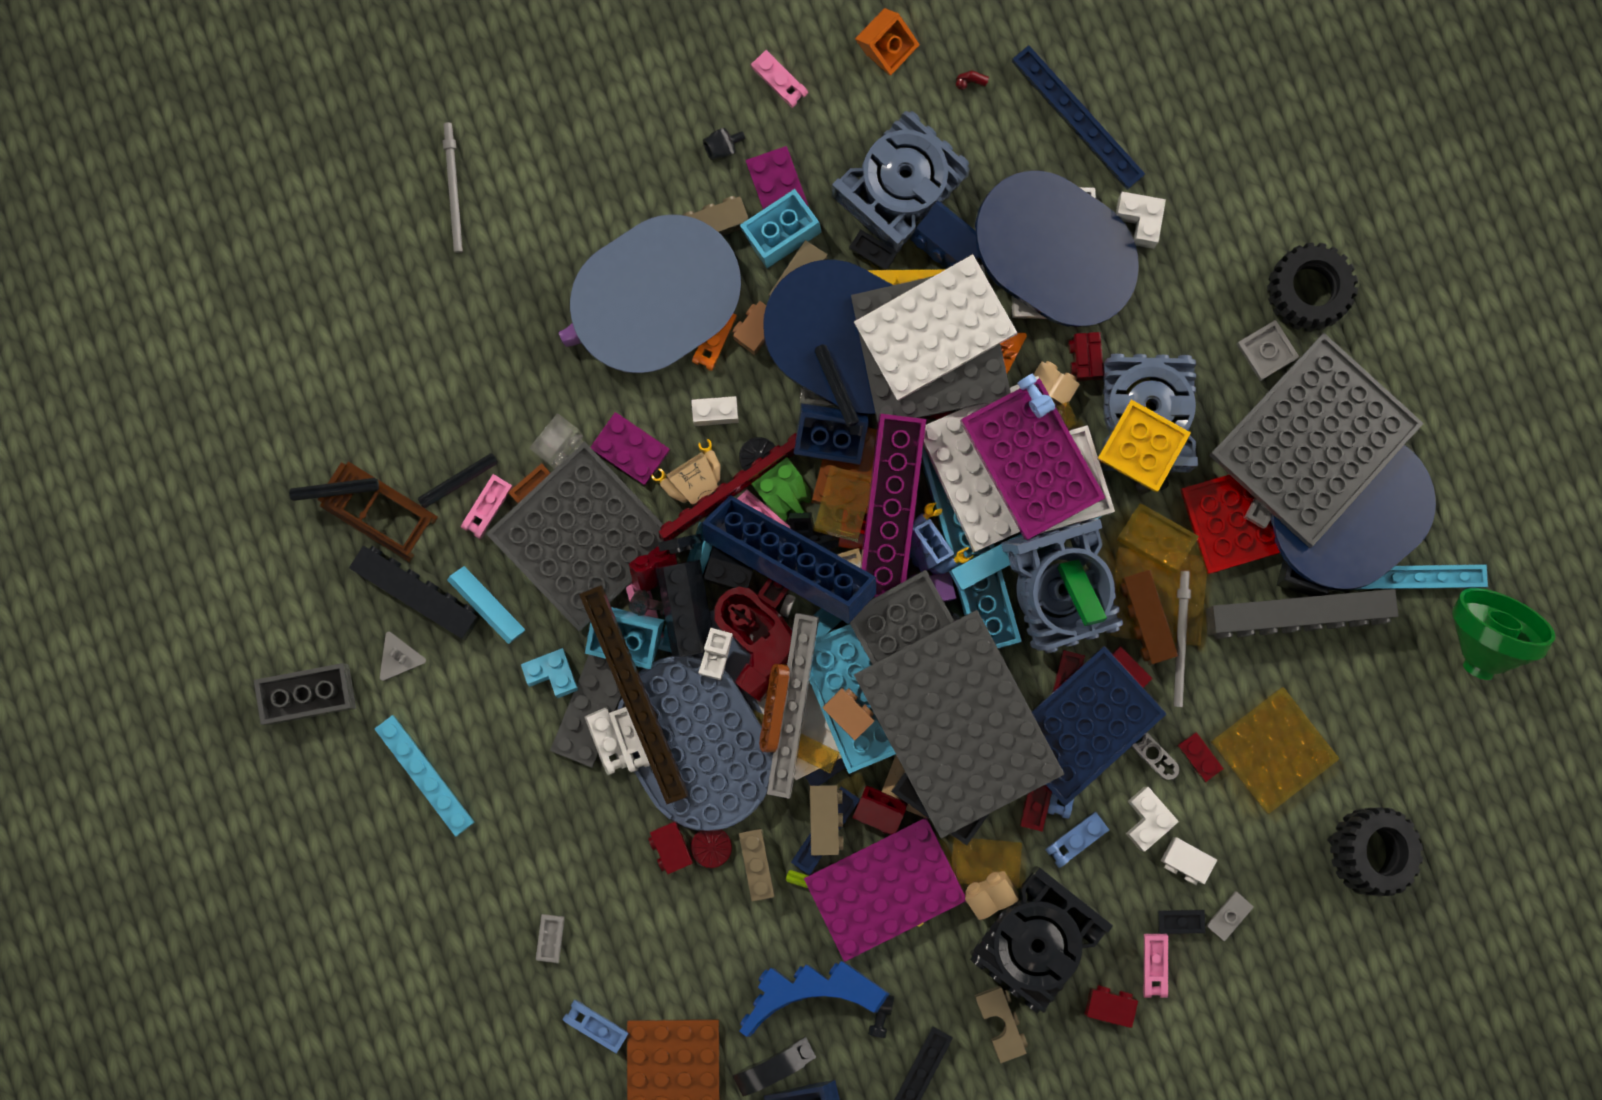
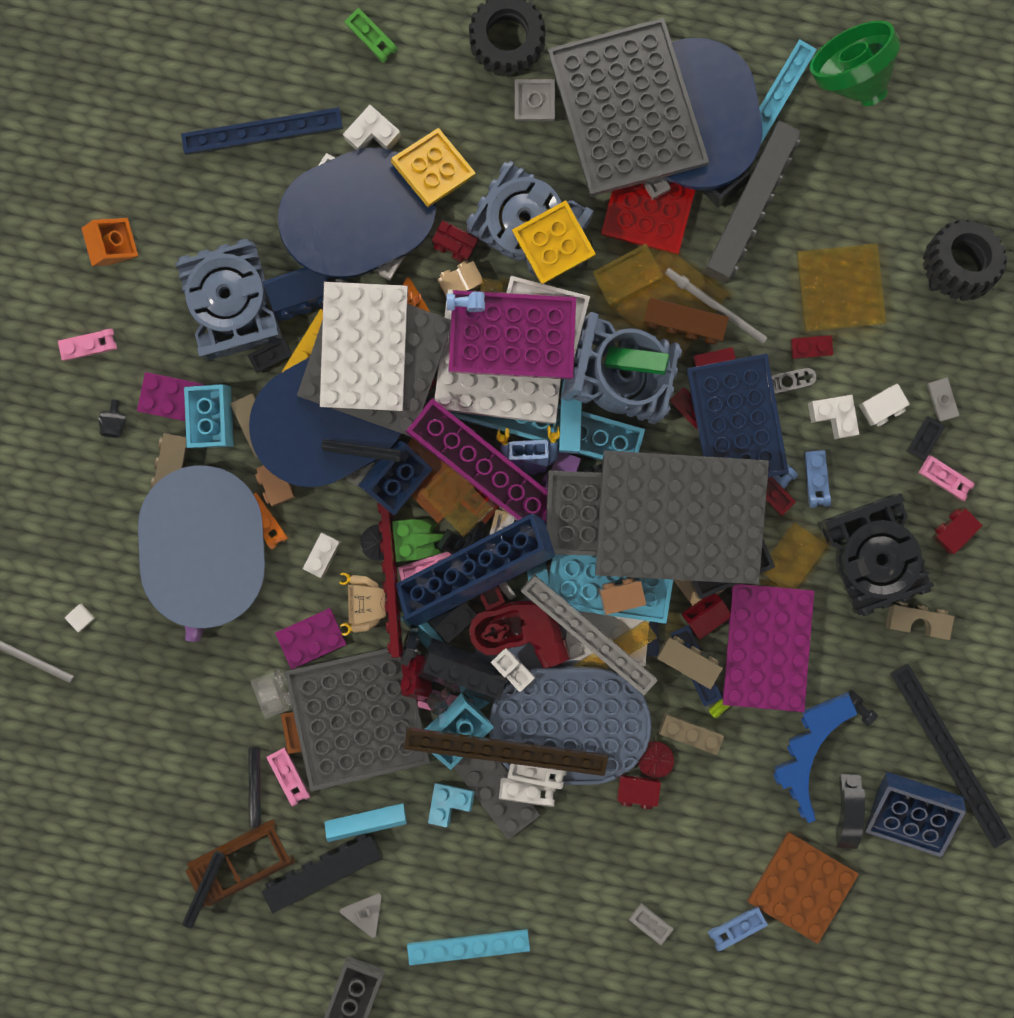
camera: 65 degrees left, 5 degrees up
(520, 224) = (79, 618): none -> white tile
(774, 708) = (582, 650): dark orange beam -> none
(971, 76) = (178, 194): dark red arm -> none
(991, 895) = (821, 570): tan brick -> none
(1144, 293) = (433, 167): none -> yellow plate
(1231, 162) = (370, 35): none -> bright green plate

